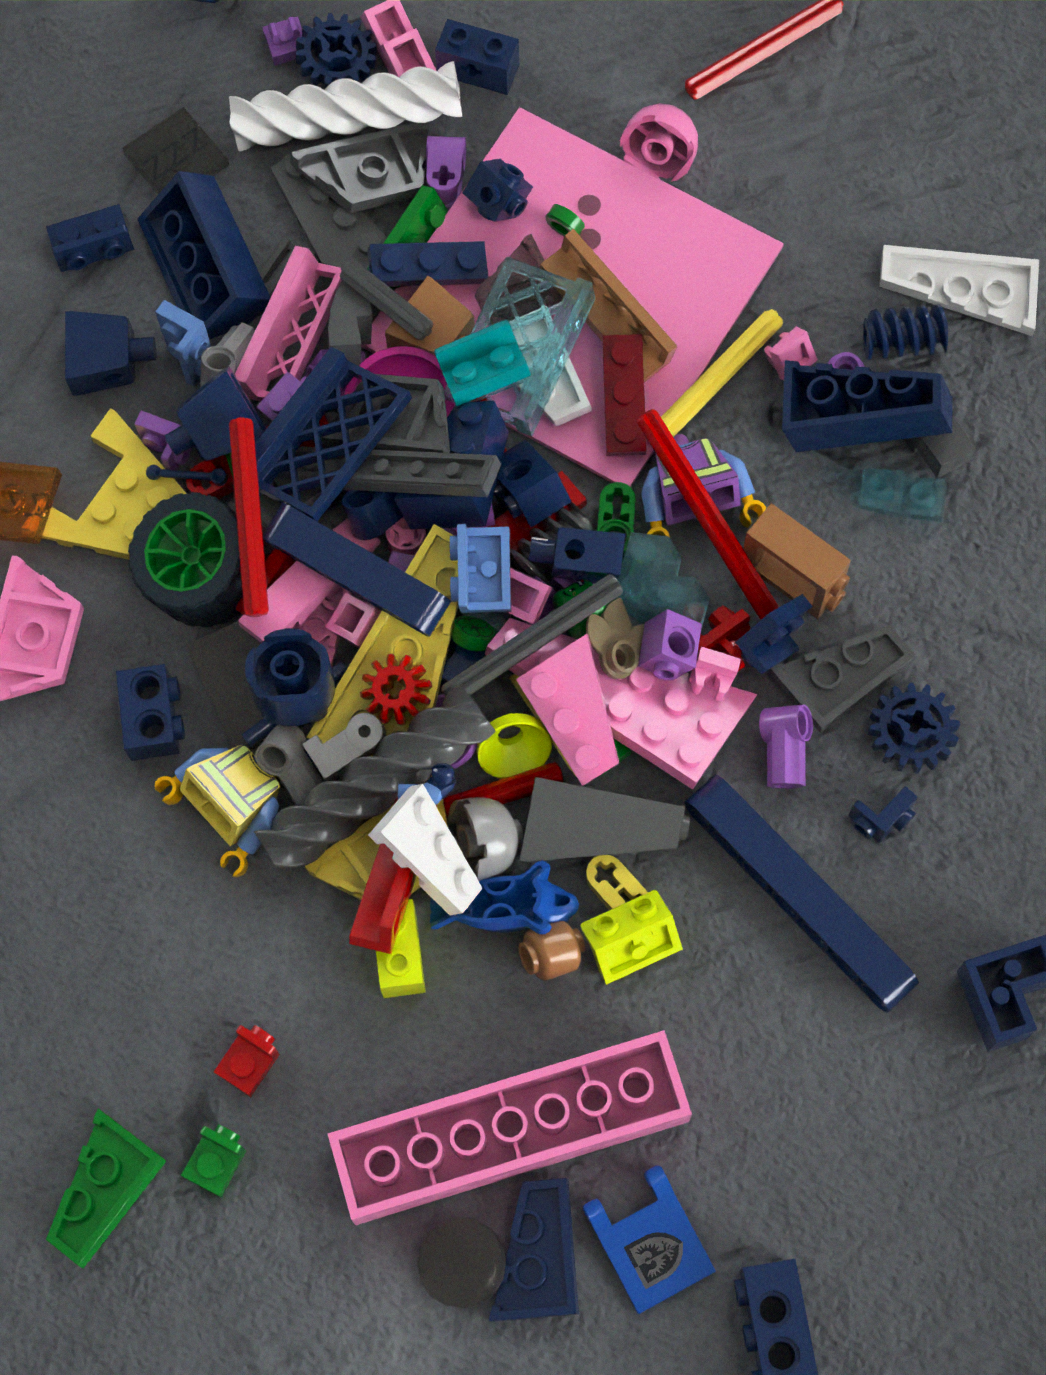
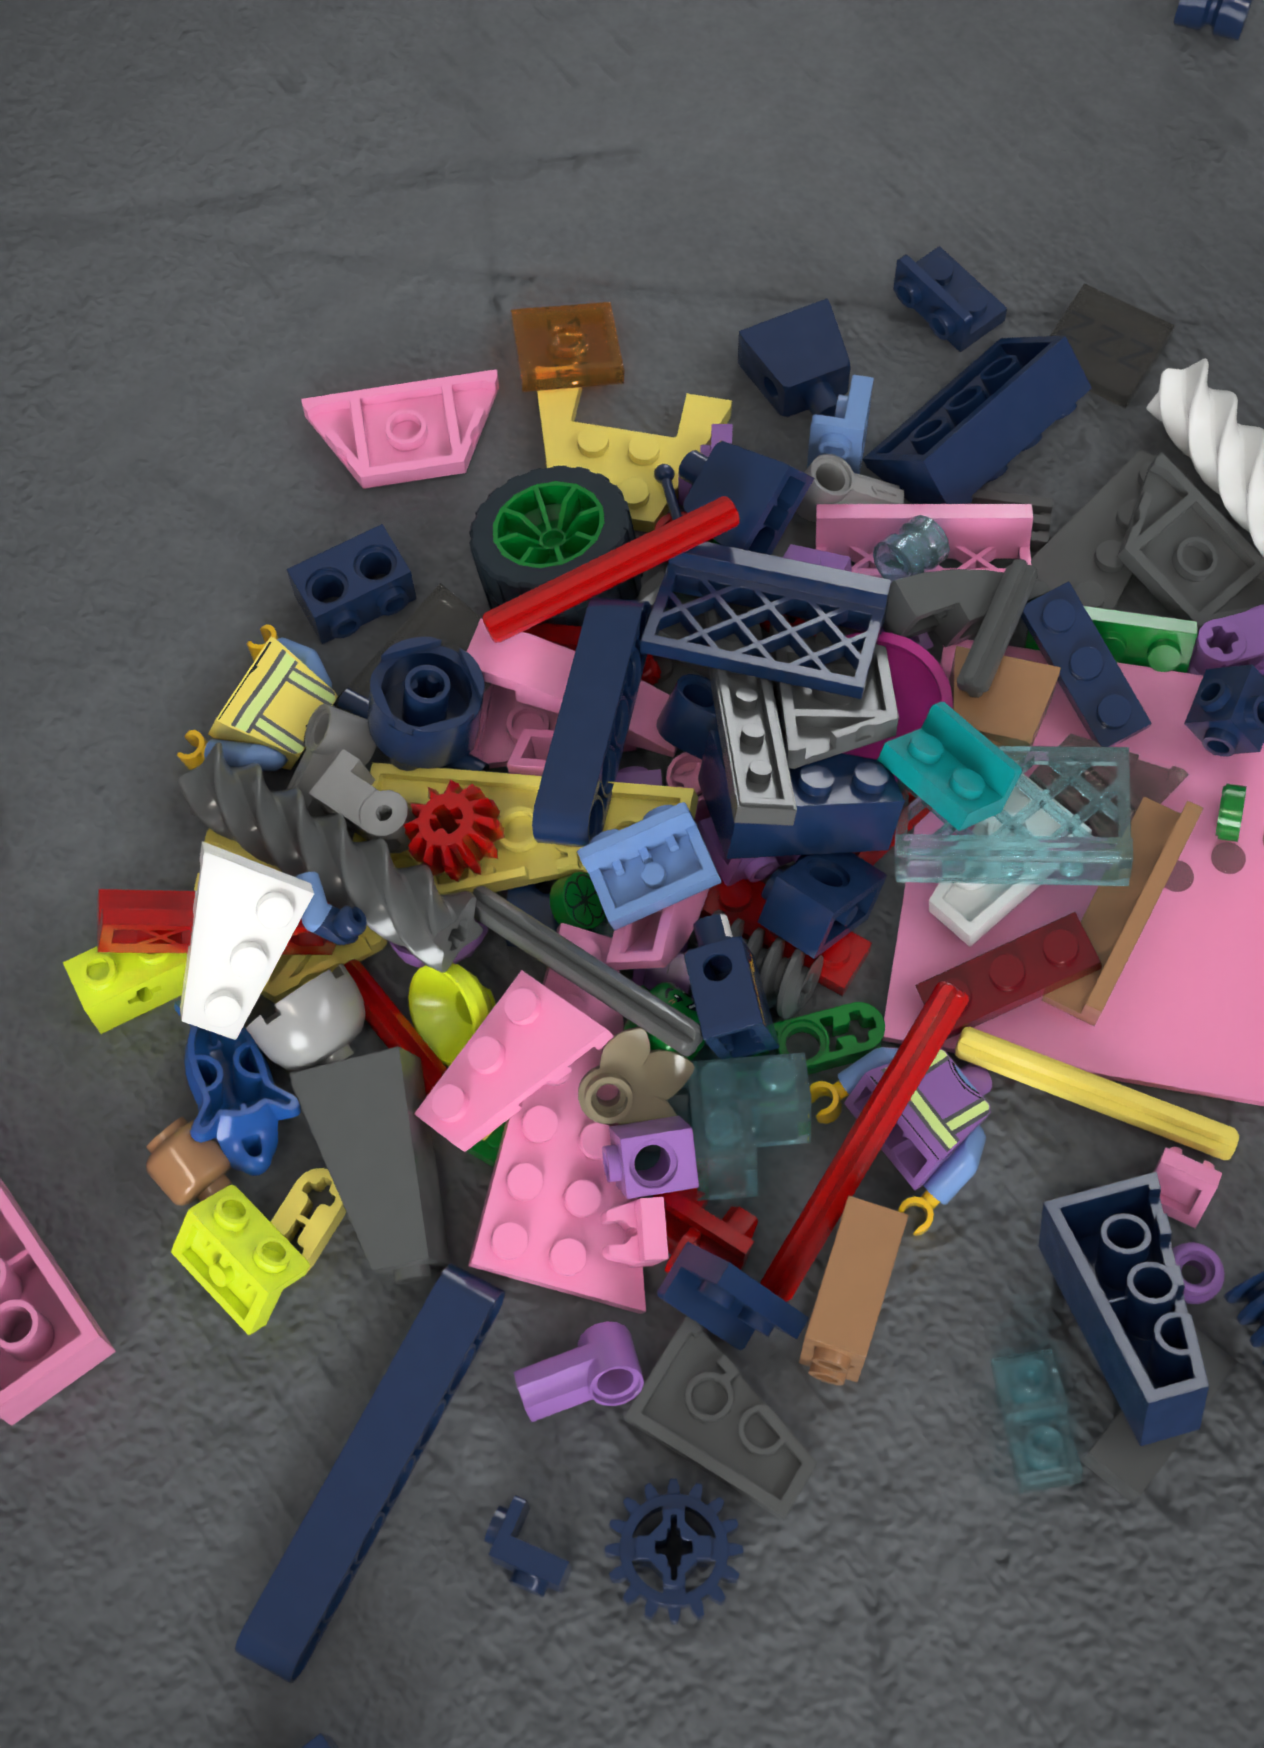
camera: 70 degrees right, 5 degrees down
(296, 327) = (916, 548): none -> clear light blue wheel

